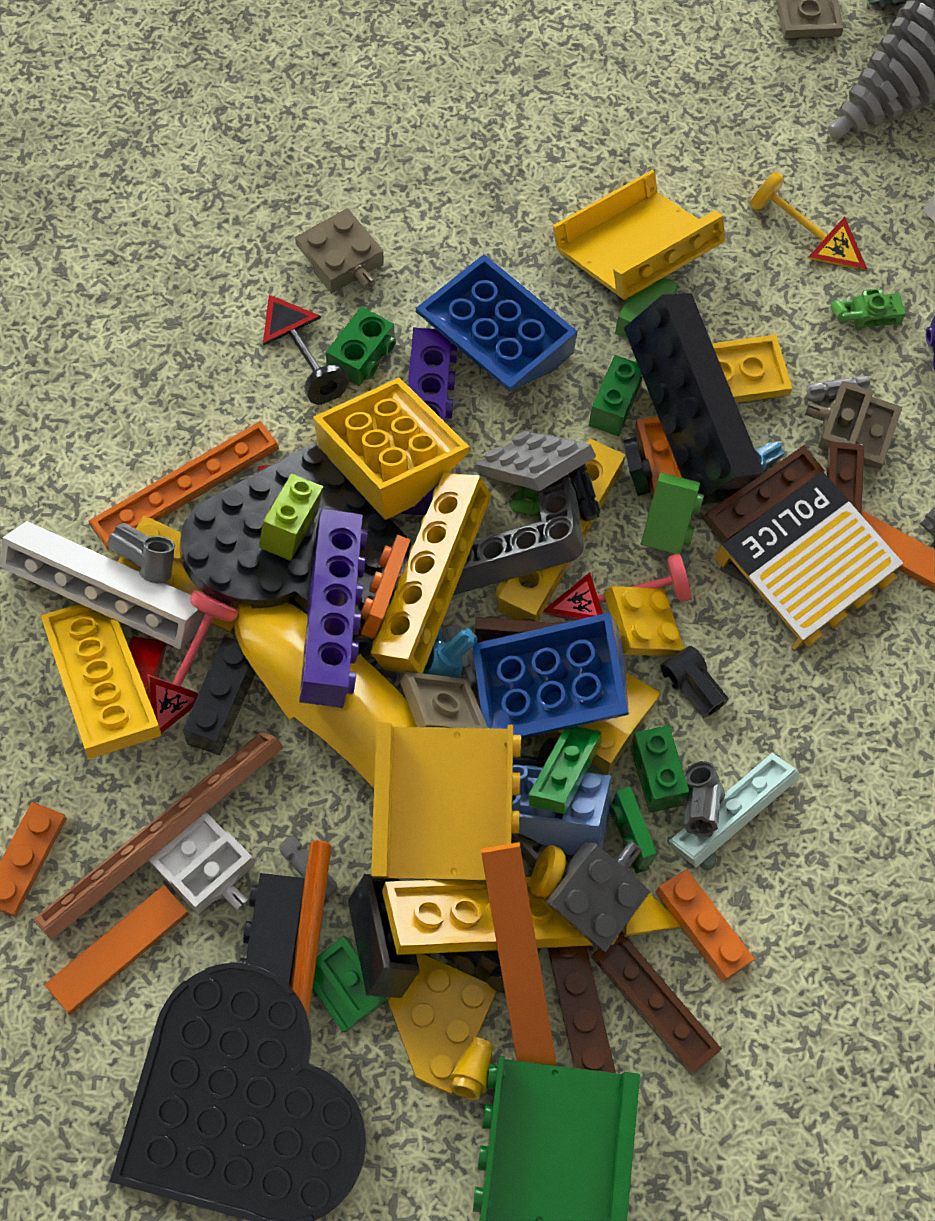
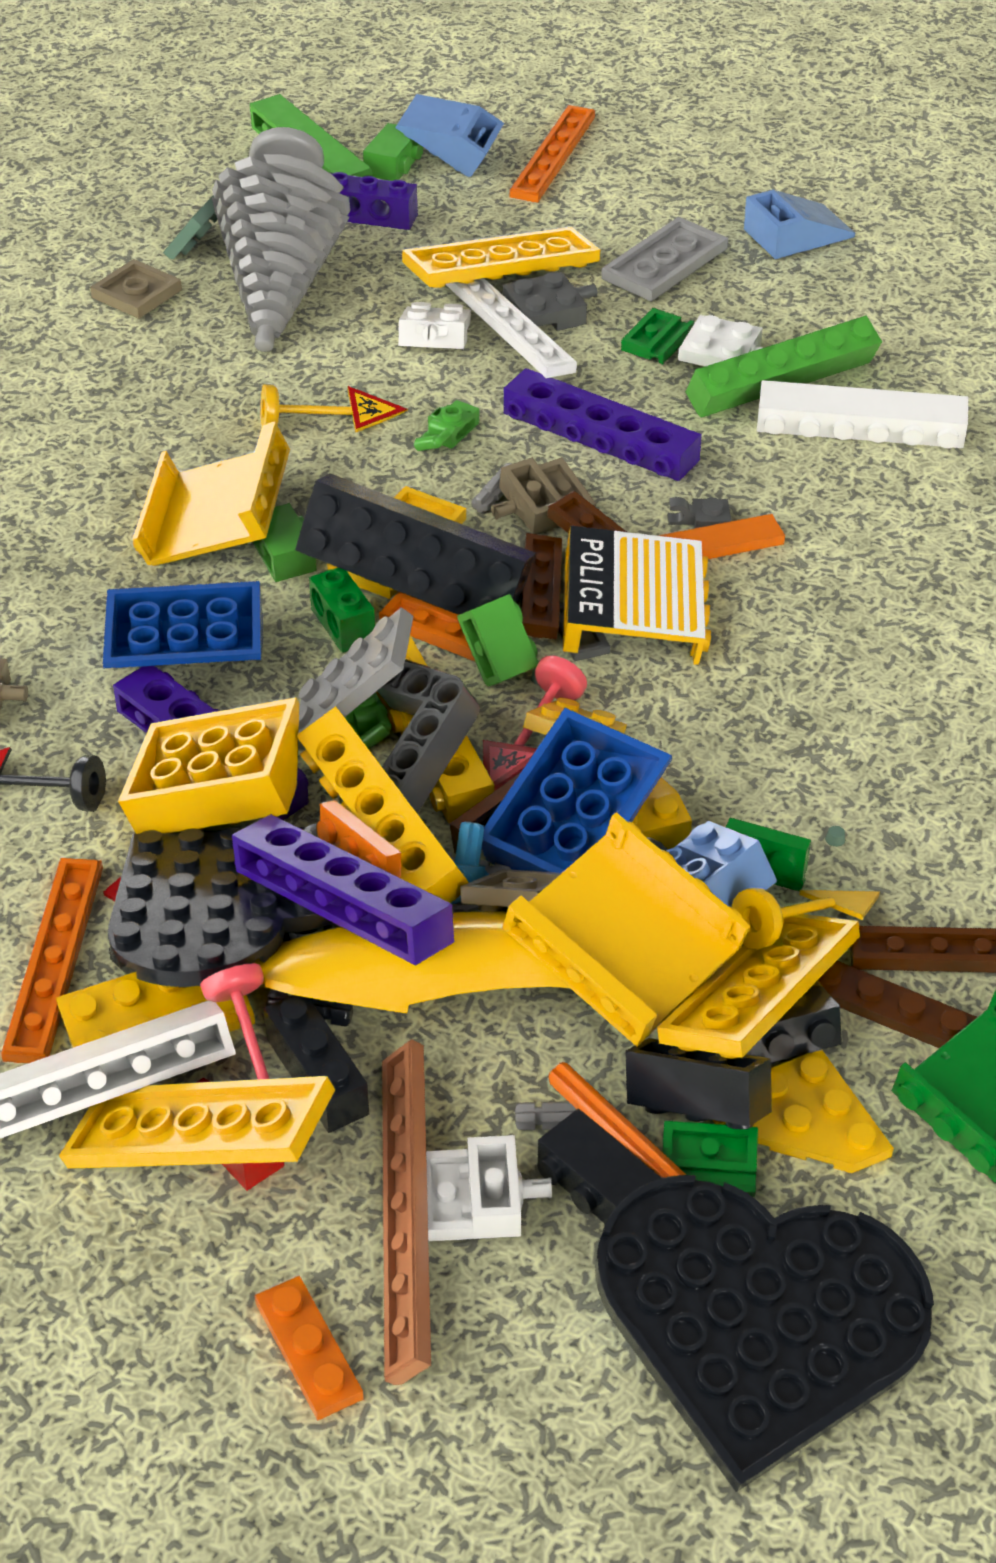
camera: 45 degrees left, 20 degrees down
(116, 949) = (490, 1329): orange tile -> none
(151, 554) = (116, 1005): dark grey piece -> none
(290, 516) = (211, 865): lime brick -> none
(355, 344) = (79, 731): green brick -> none
(471, 1072) = (890, 1112): yellow cone -> none
(518, 953) = (819, 976): orange tile -> none
(565, 769) = (680, 834): green plate -> none
(599, 893) = (813, 892): dark grey plate -> none
(638, 467) = (432, 639): black plate -> none
(659, 768) = (720, 795): green brick -> none
(690, 675) = (666, 733): black piece -> none
(703, 799) = (783, 790): dark grey piece -> none
(704, 925) = (895, 874): orange plate -> none
(739, 807) = (809, 785): light aqua tile -> none

